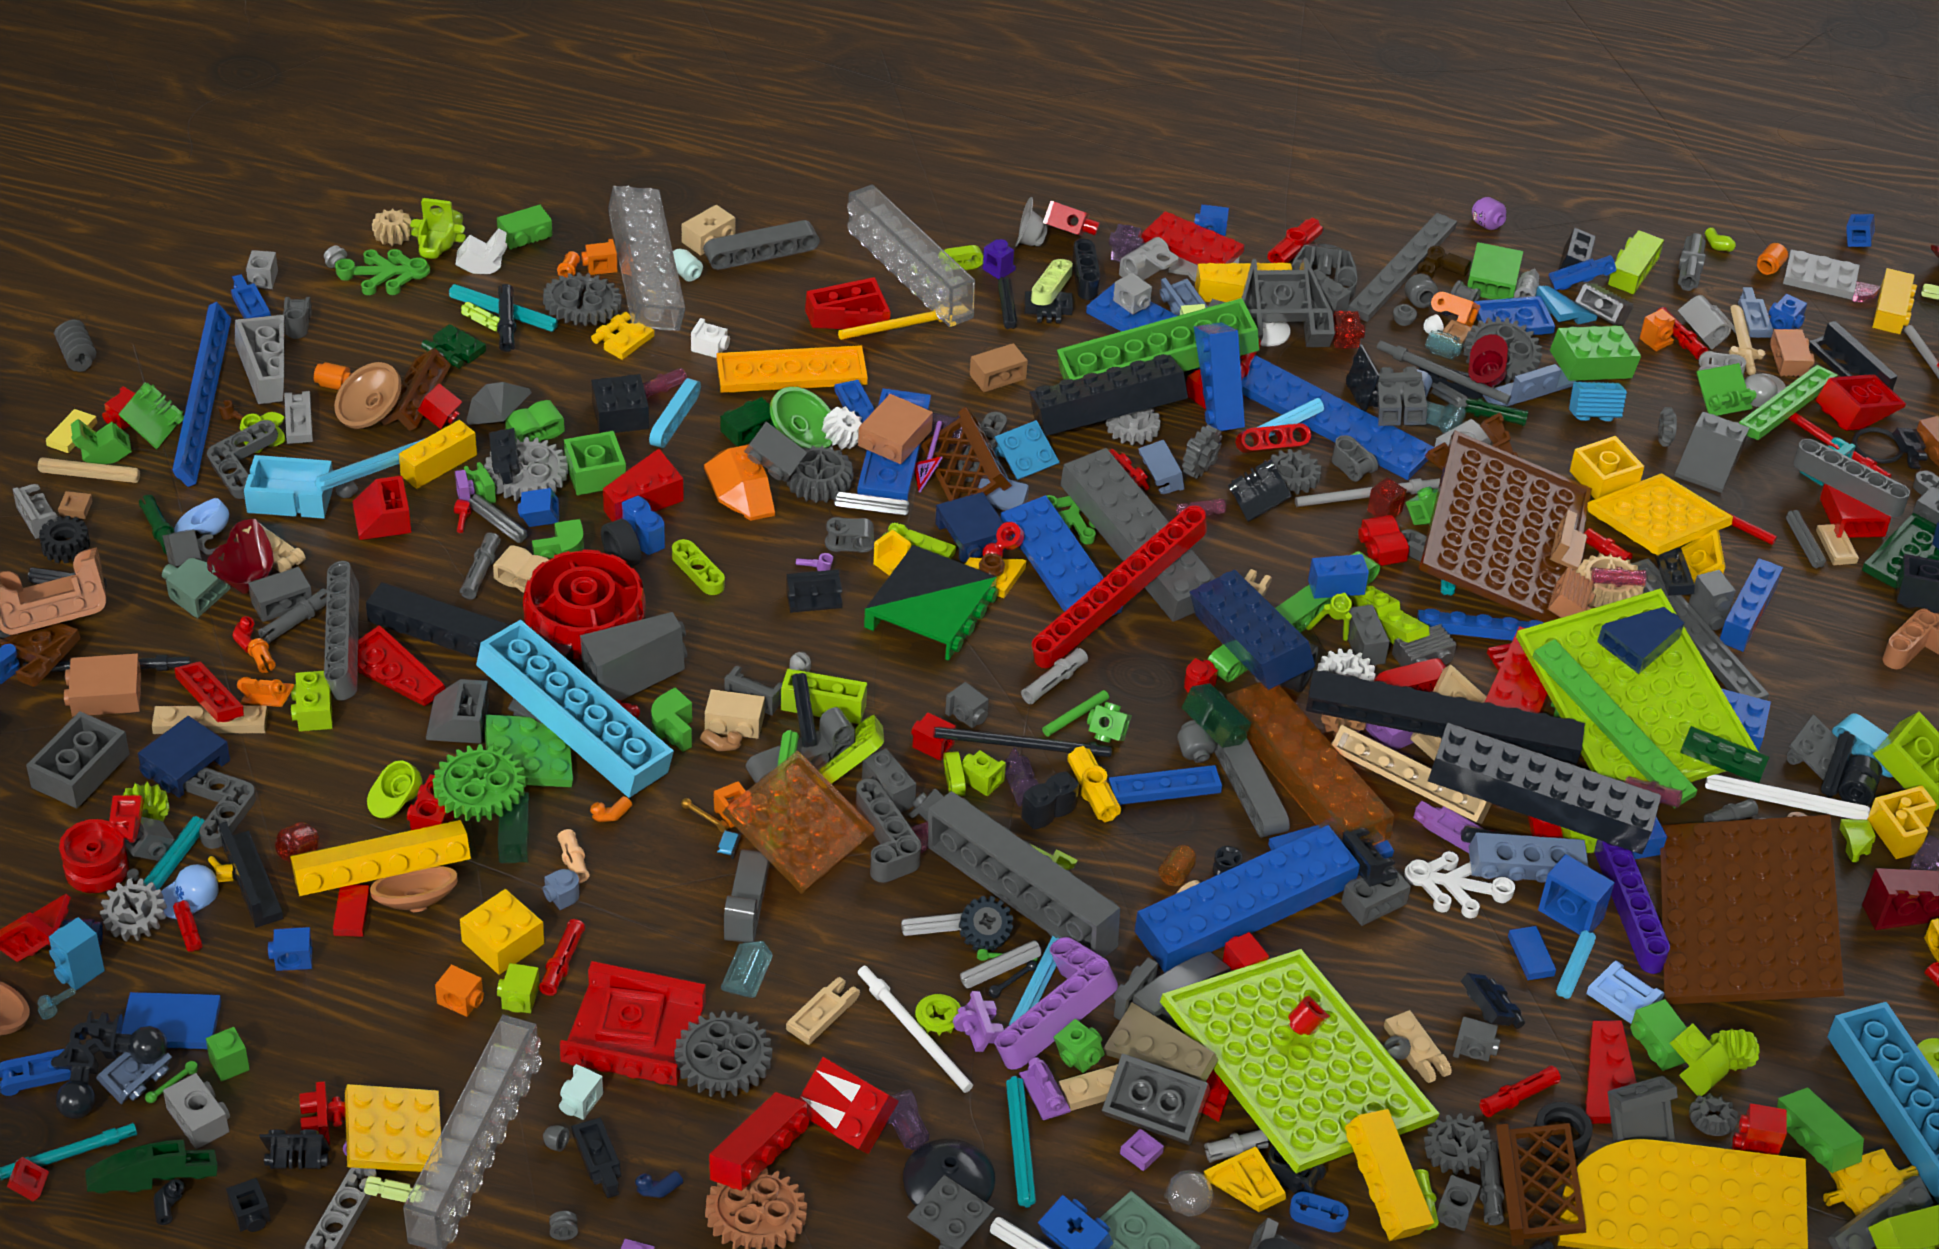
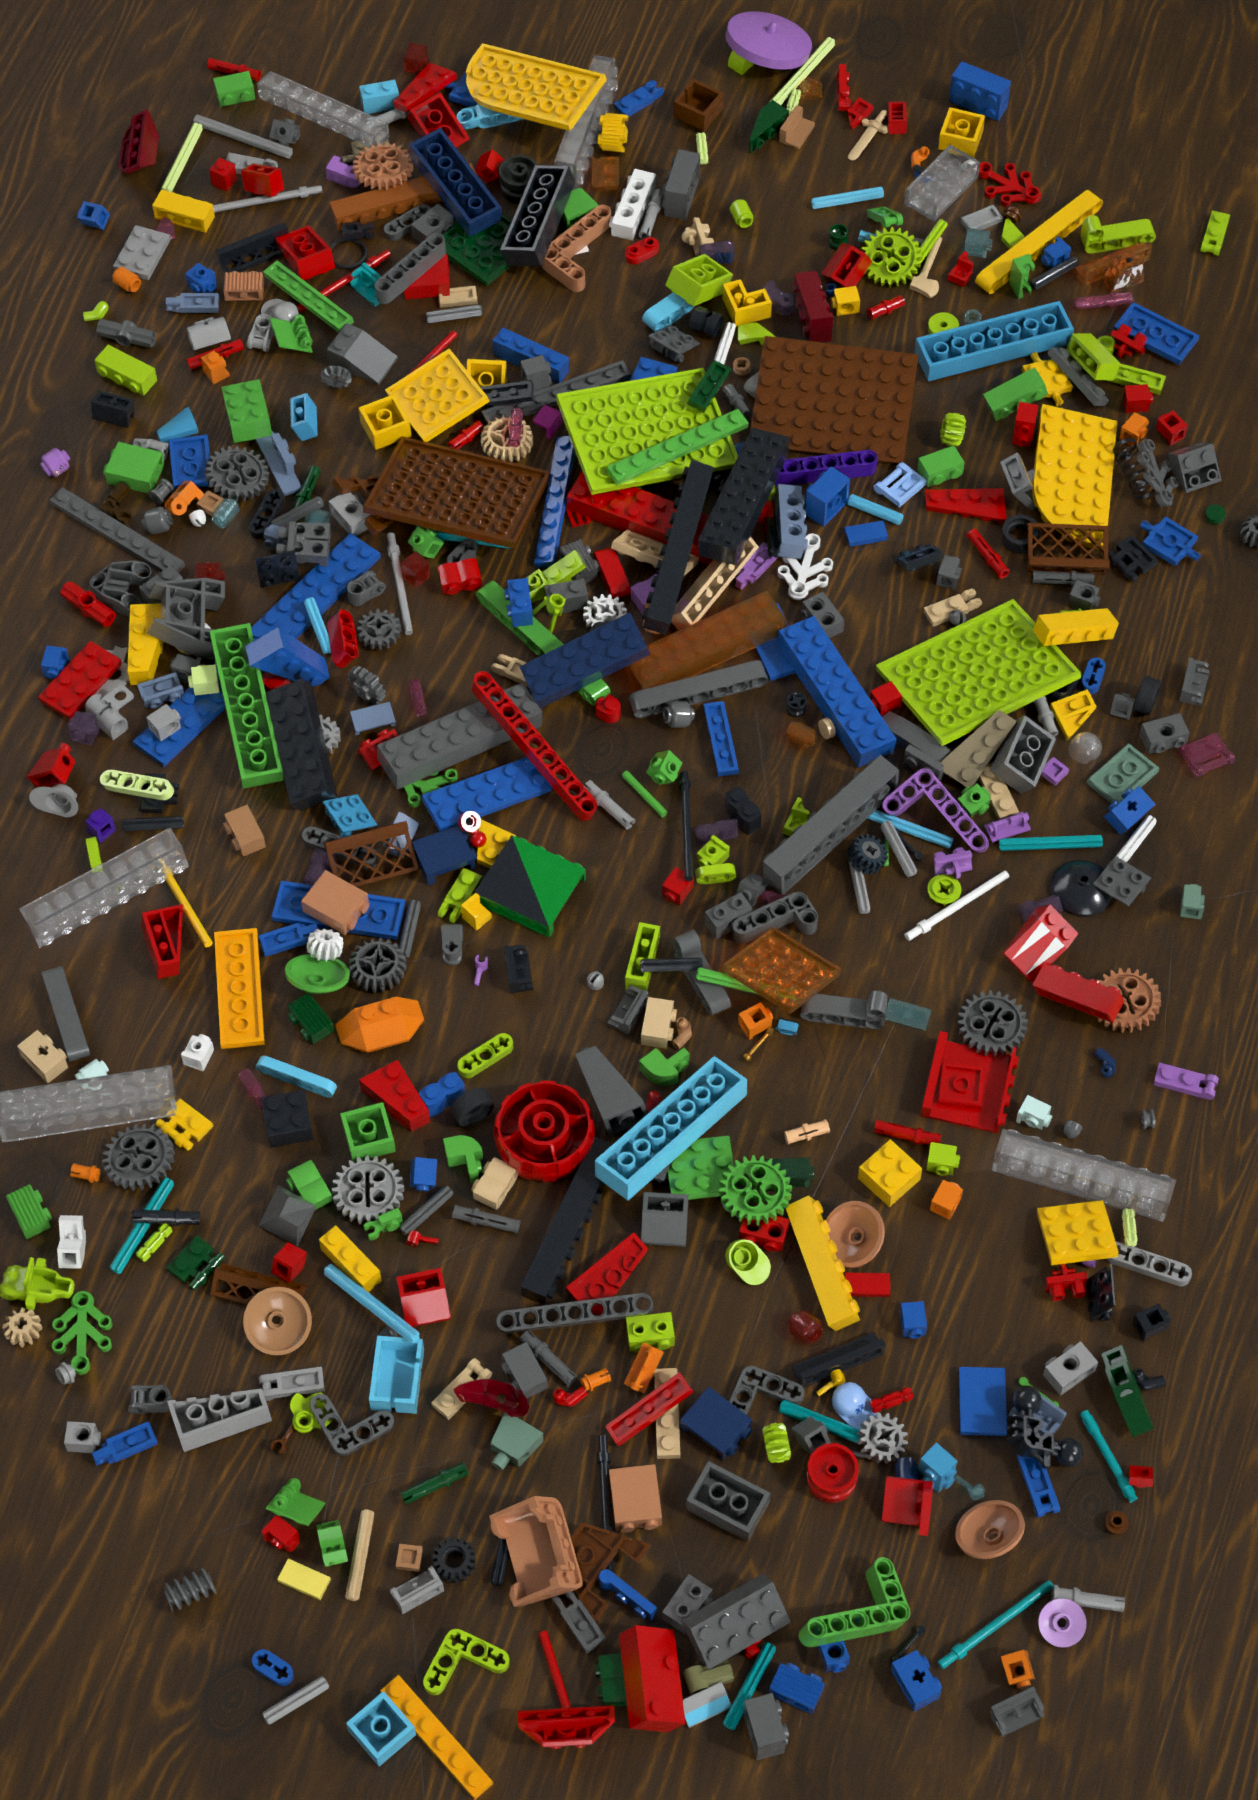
camera: 85 degrees left, 15 degrees up
(126, 815) = (809, 1442): red slope -> none
(185, 545) = (473, 1452): dark grey brick -> none
(201, 395) = (270, 1469): blue plate -> none
(205, 518) = (431, 1447): light blue cap -> none
(227, 1054) = (1018, 1352): bright green brick -> none
(331, 375) = (240, 1358): orange brick -> none
(463, 485) = (392, 1237): medium lavender plate -> none
(504, 453) = (363, 1200): black hinge -> none
(562, 888) = (841, 1136): sand blue plate -> none
(598, 1155) = (1085, 1100): black hinge -> none
(600, 258) = (78, 1144): orange brick -> none
(612, 813) = (759, 1106): orange arm -> none
(775, 452) = (379, 984): dark grey brick -> none
(821, 1011) = (947, 961): tan hinge -> none
(869, 738) = (700, 925): lime beam -> none
(925, 468) = (369, 885): medium lavender piece -> none
(967, 705) = (644, 862): dark grey brick -> none
(992, 564) = (494, 834): reddish brown plate -> none
(1086, 269) = (105, 759): black beam -> none
(1094, 784) = (713, 786): yellow piece -> none
(1216, 715) = (671, 691): clear green brick -> none
(1259, 490) = (404, 652): black hinge -> none
(1307, 1017) = (953, 658): red plate -> none
(1373, 866) = (805, 610): black hinge -> none
(1401, 354) = (241, 541): dark grey bar -> none
(1404, 314) = (181, 541): dark grey plate -> none
(1444, 1142) = (1038, 599): dark grey gear -> none
(1488, 360) = (266, 478): dark red piece -> none
(1568, 542) = (471, 456): medium nougat panel -> none
(1571, 594) = (534, 460): nougat brick -> none
(1581, 272) = (144, 407): blue hinge -> none
(1604, 304) = (182, 397): flat silver brick -> none
(1641, 637) = (609, 411): dark blue slope -> none
(1668, 795) = (741, 433): clear pink pin -> none
(1706, 1062) = (967, 447): lime brick -> none
(1713, 1124) = (995, 458): dark grey gear -> none
(1745, 347) = (239, 316): tan sword -> none
(1838, 764) = (690, 331): black axle -> none

